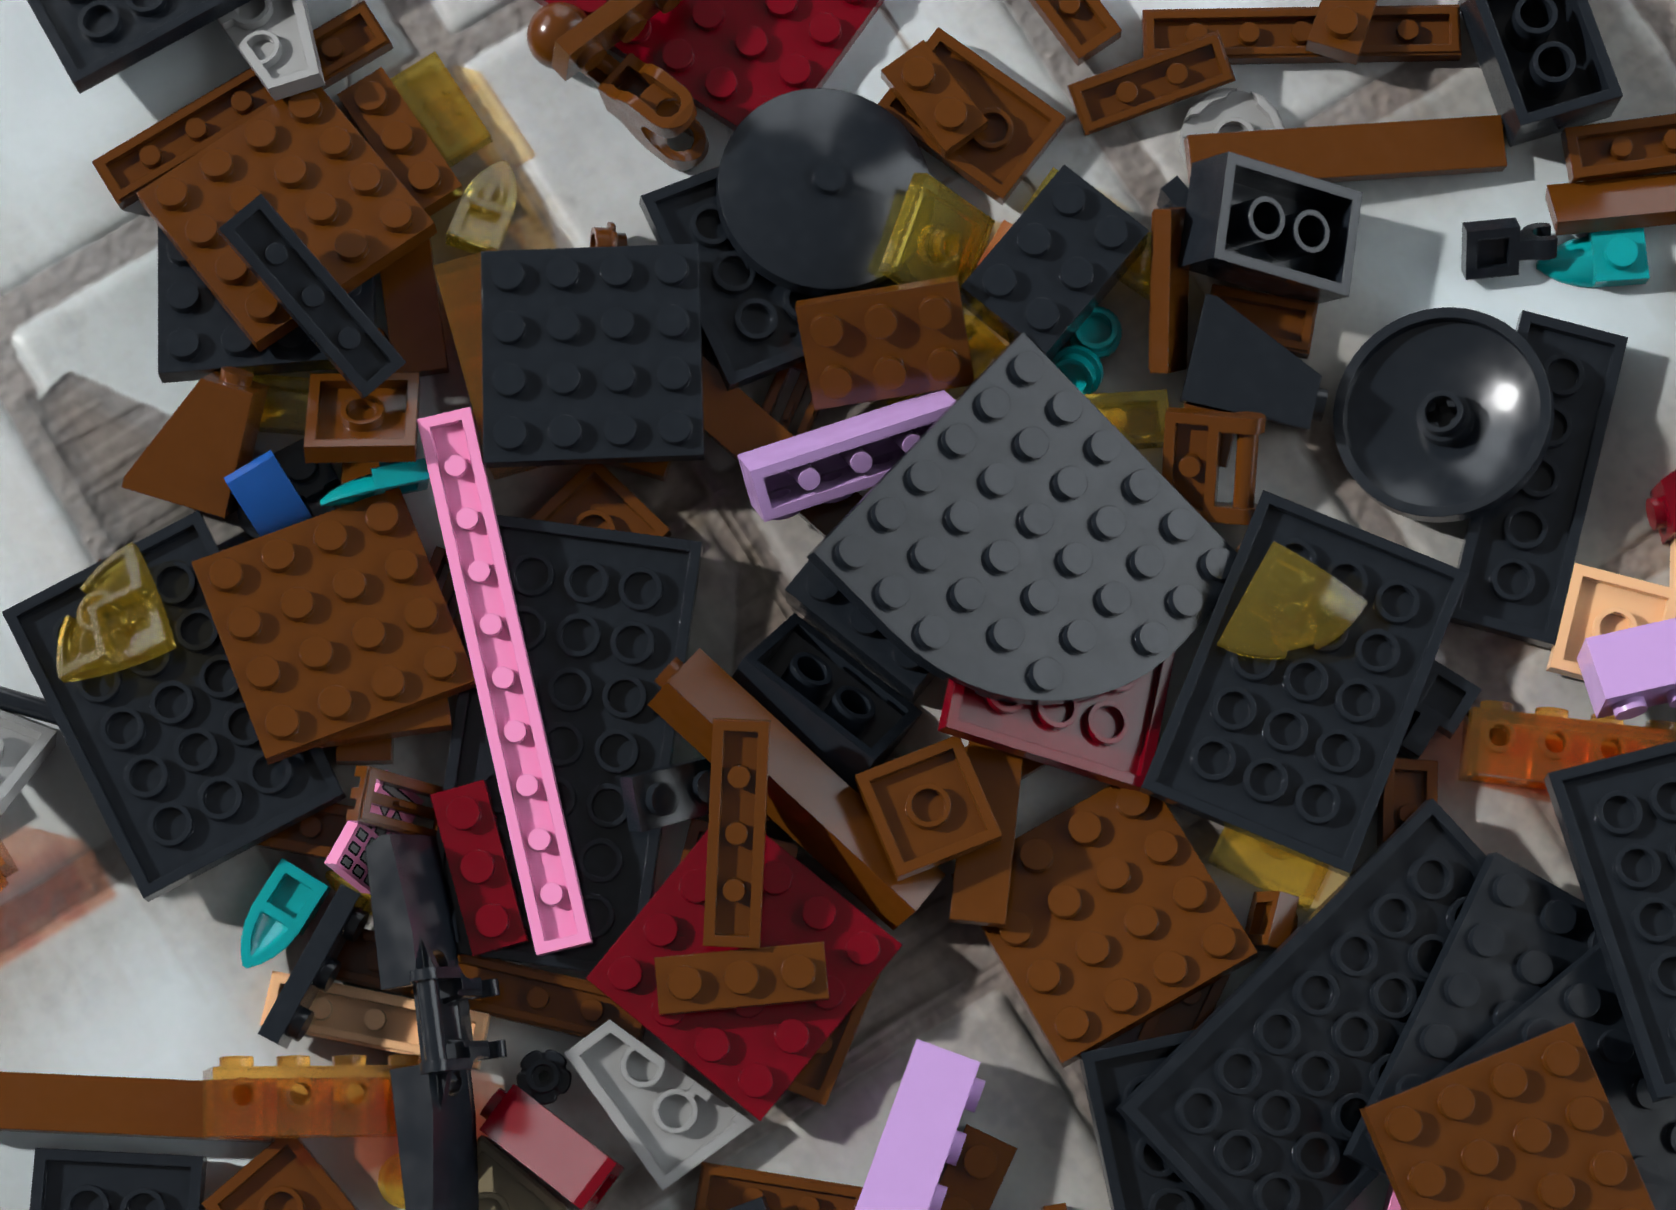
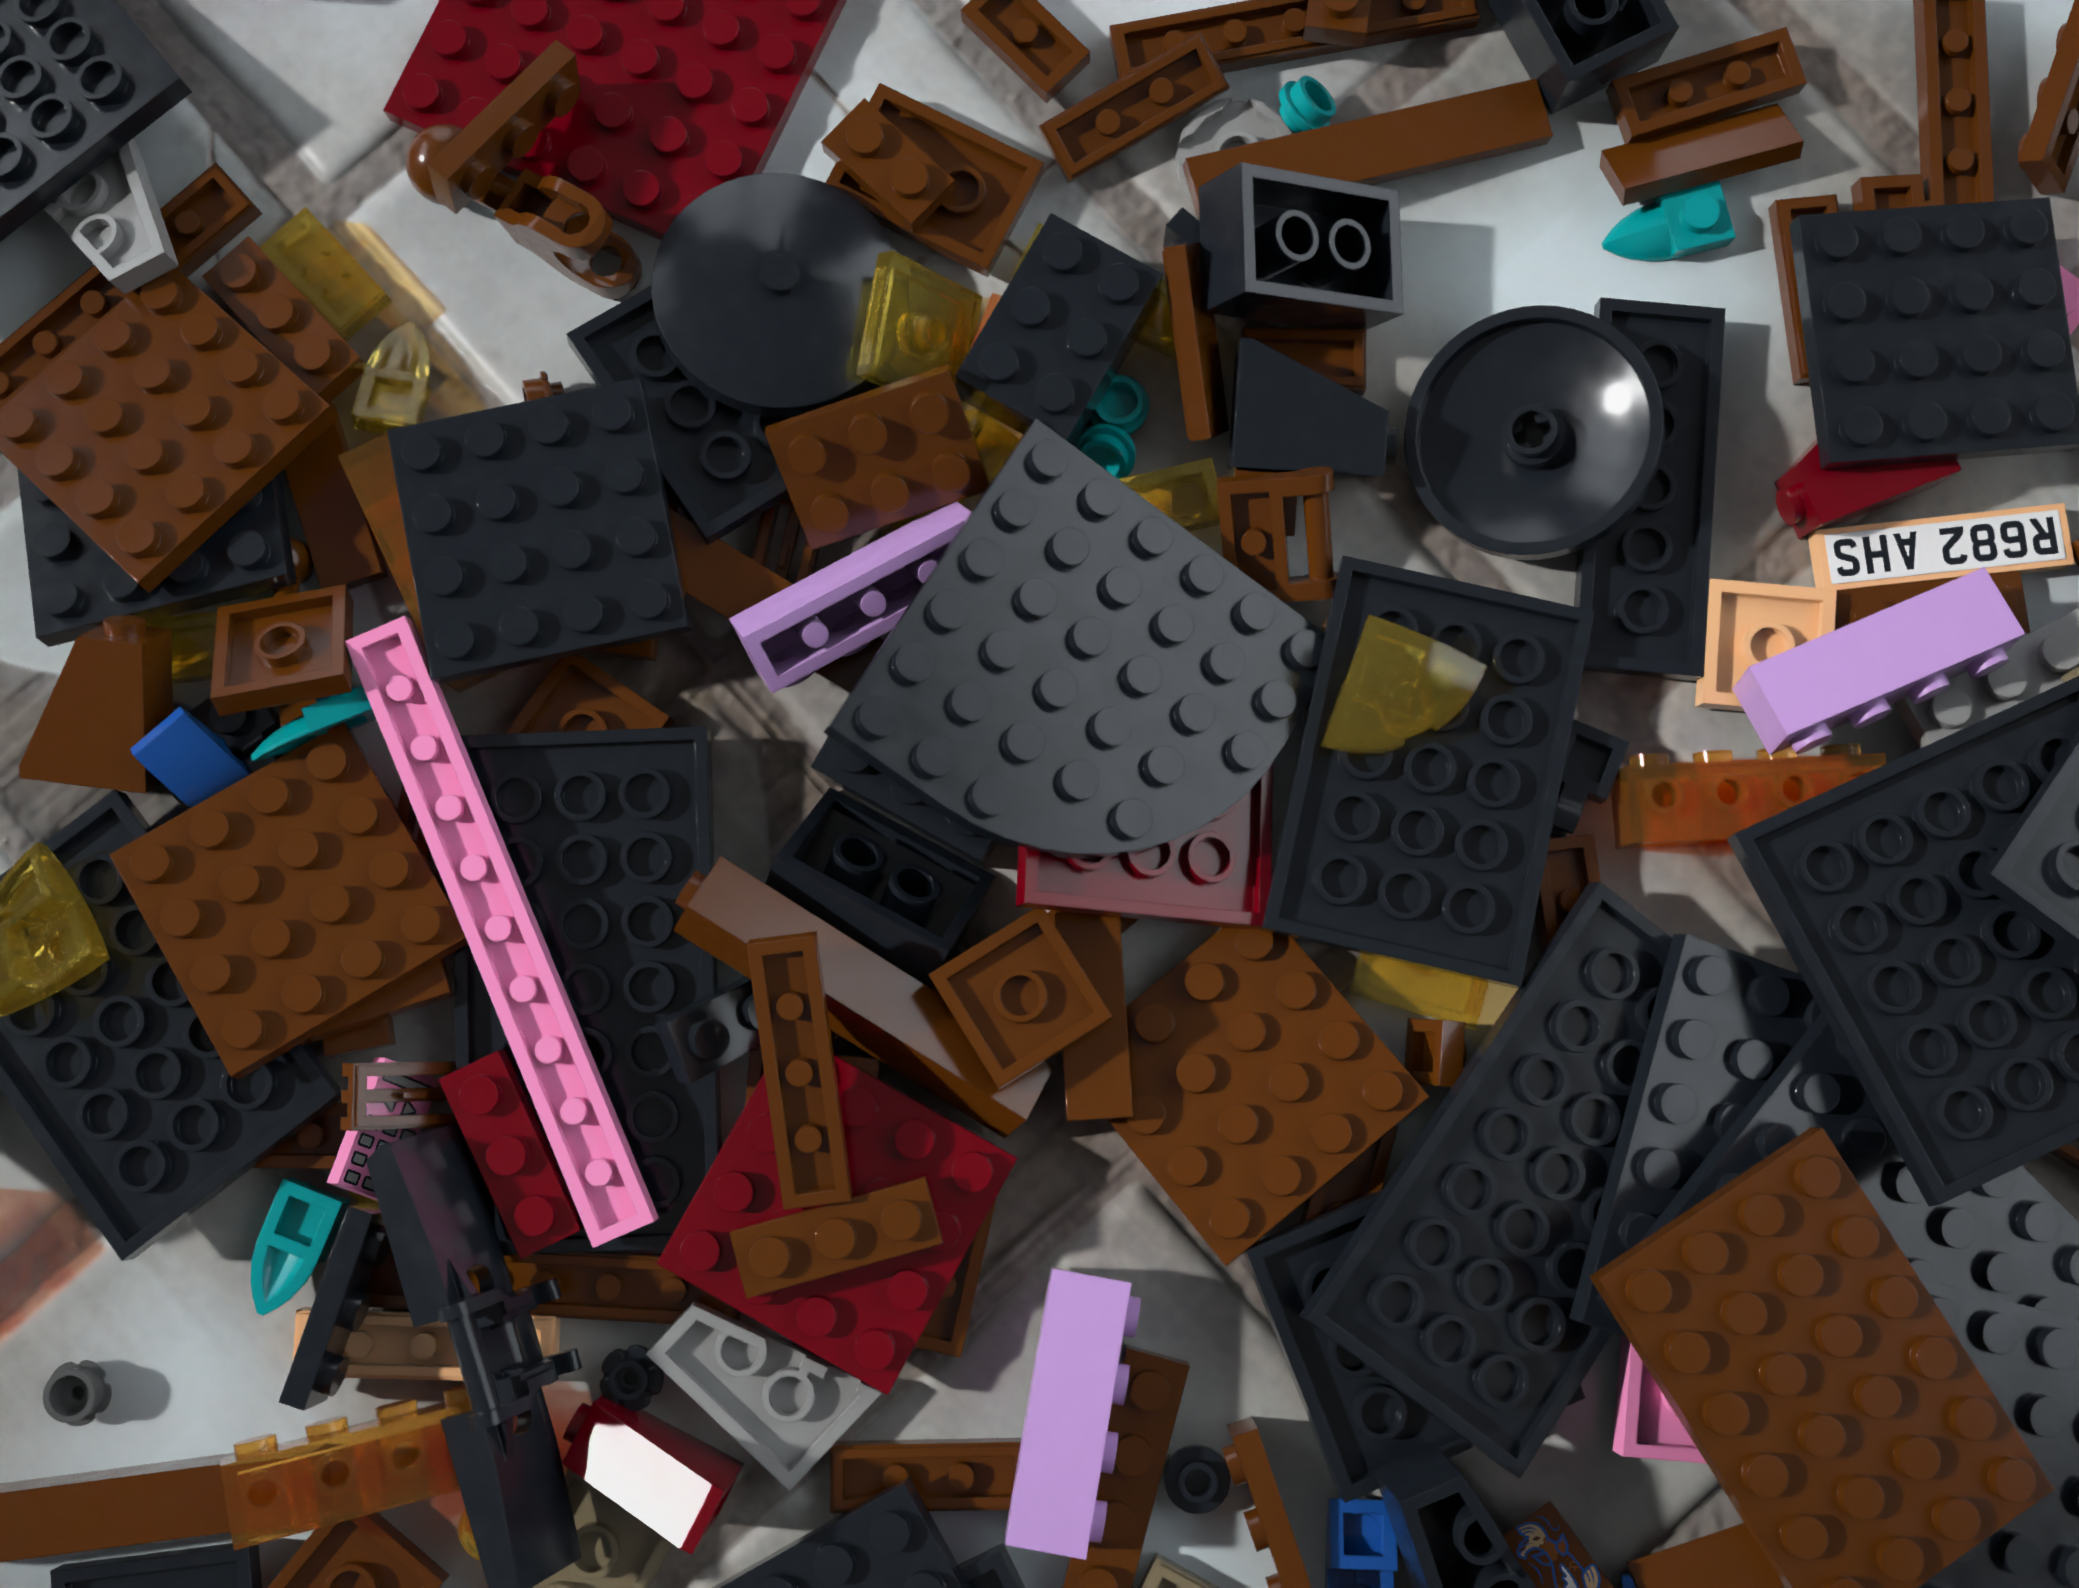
camera: 10 degrees left, 5 degrees up
(63, 1007) = (60, 1396): none -> dark grey plate
(311, 296) = (187, 515): black plate -> none
(1299, 105) = (1306, 104): none -> teal plate
(1498, 245) = (1559, 227): black plate -> none

